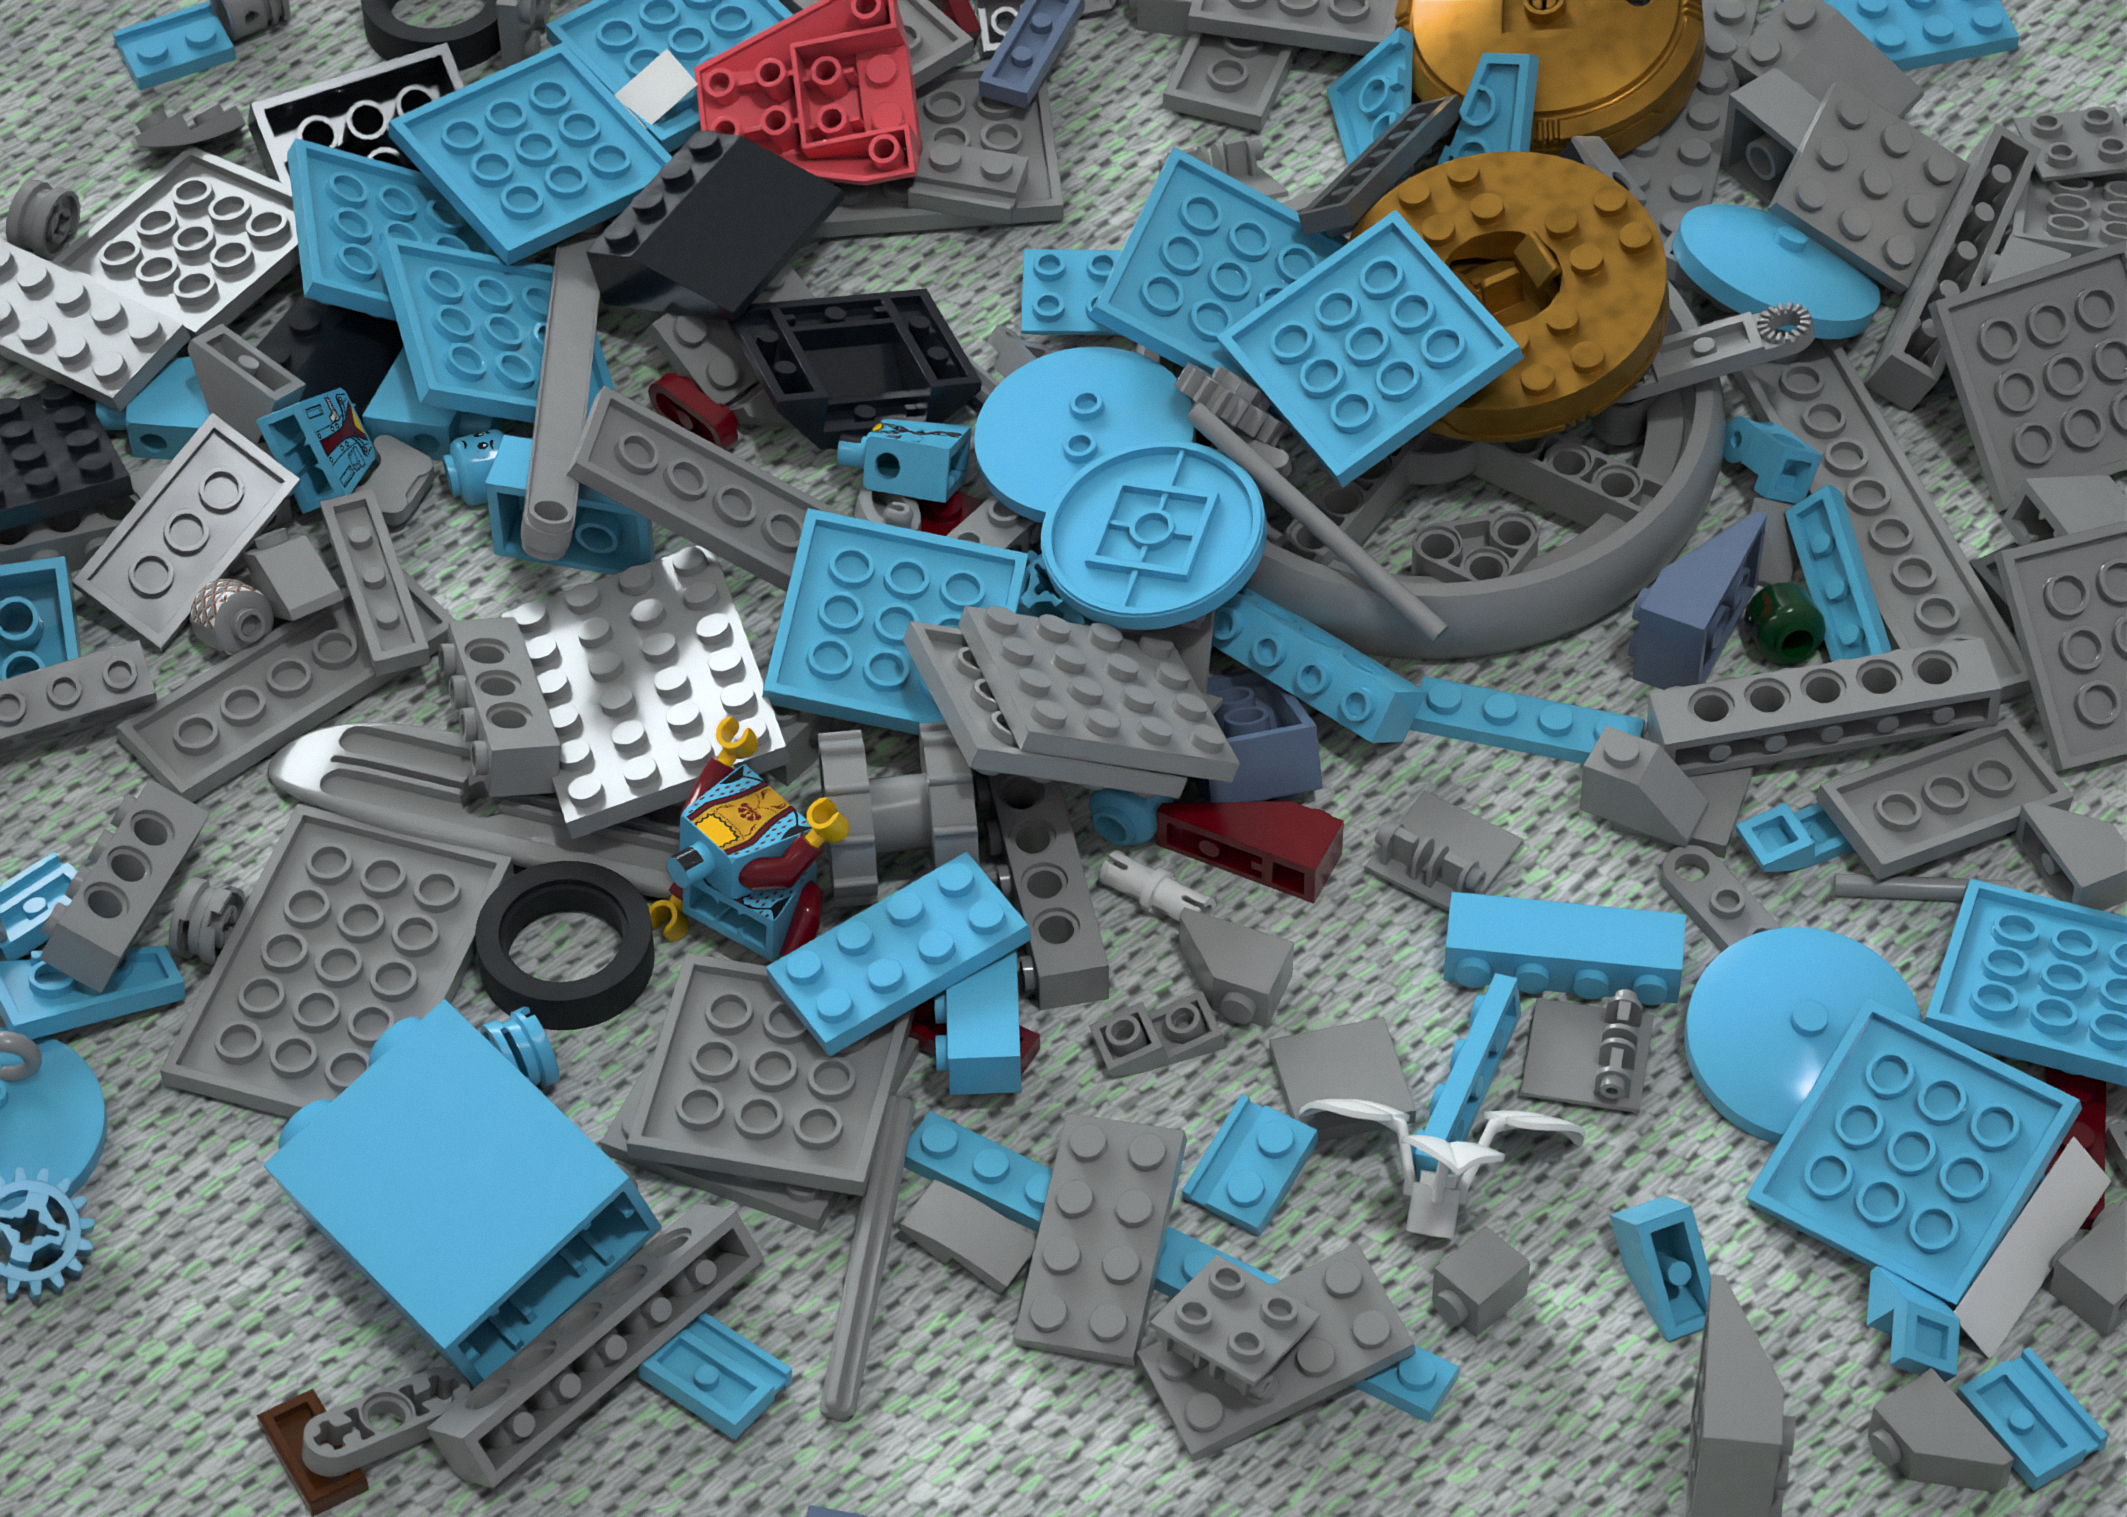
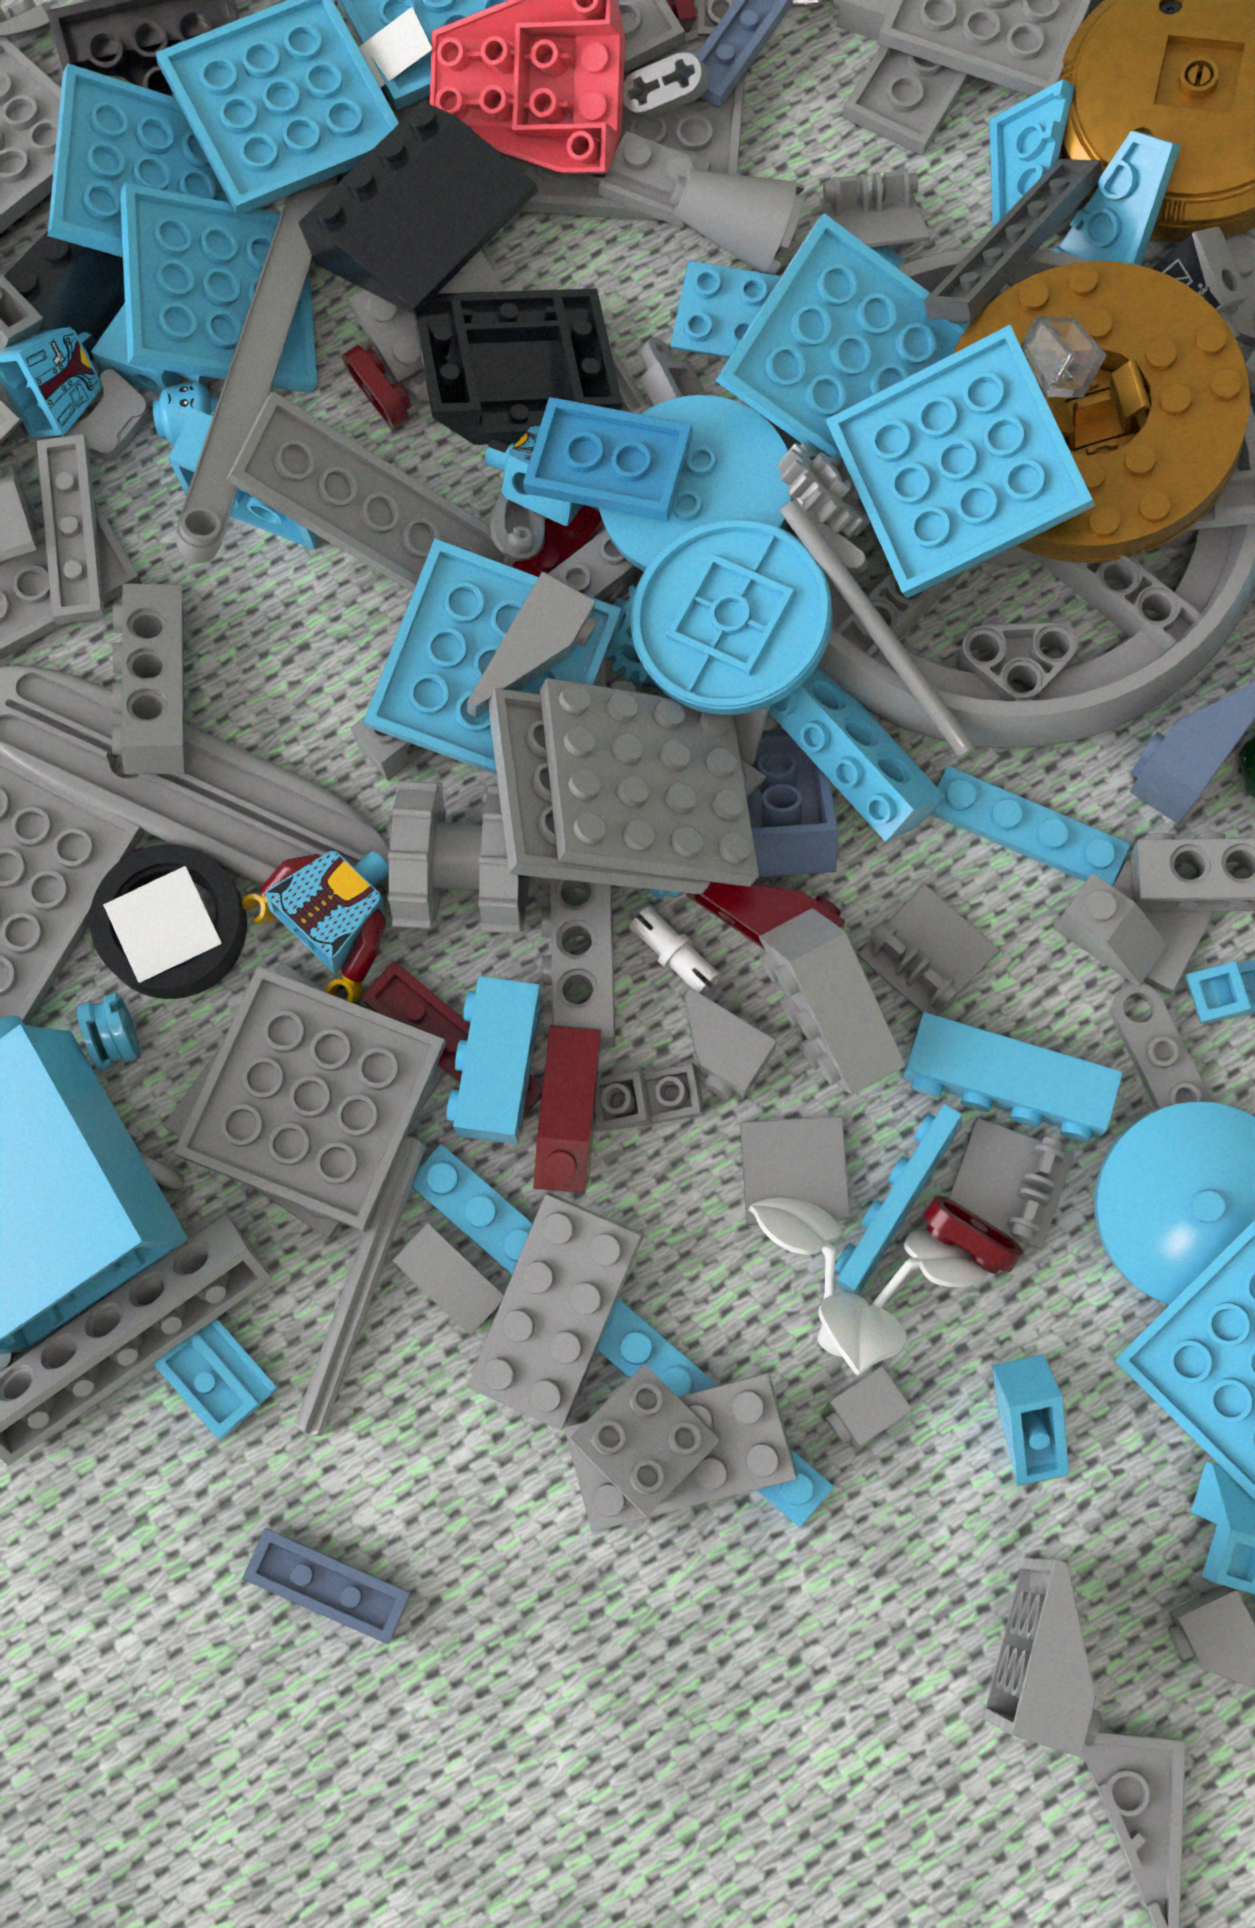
camera: 15 degrees right, 25 degrees up
(563, 937) = (162, 924): none -> white sticker
(640, 682) = (275, 684): light grey plate -> none
(743, 830) = (317, 869): torso -> none
(898, 953) = (431, 1011): medium azure plate -> none
(950, 573) = (538, 639): none -> light grey slope
(963, 90) = (669, 94): none -> light grey beam
(984, 413) = (608, 459): none -> dark azure plate
(1071, 1039) = (567, 1109): none -> dark red slope
(1073, 193) = (740, 213): none -> light grey cone
(1251, 1165) = (698, 1248): medium azure plate -> none
(1346, 881) = (830, 1001): none -> light grey brick
(1457, 230) = (1062, 356): none -> clear window
(1531, 1089) = (955, 1224): none -> dark red plate

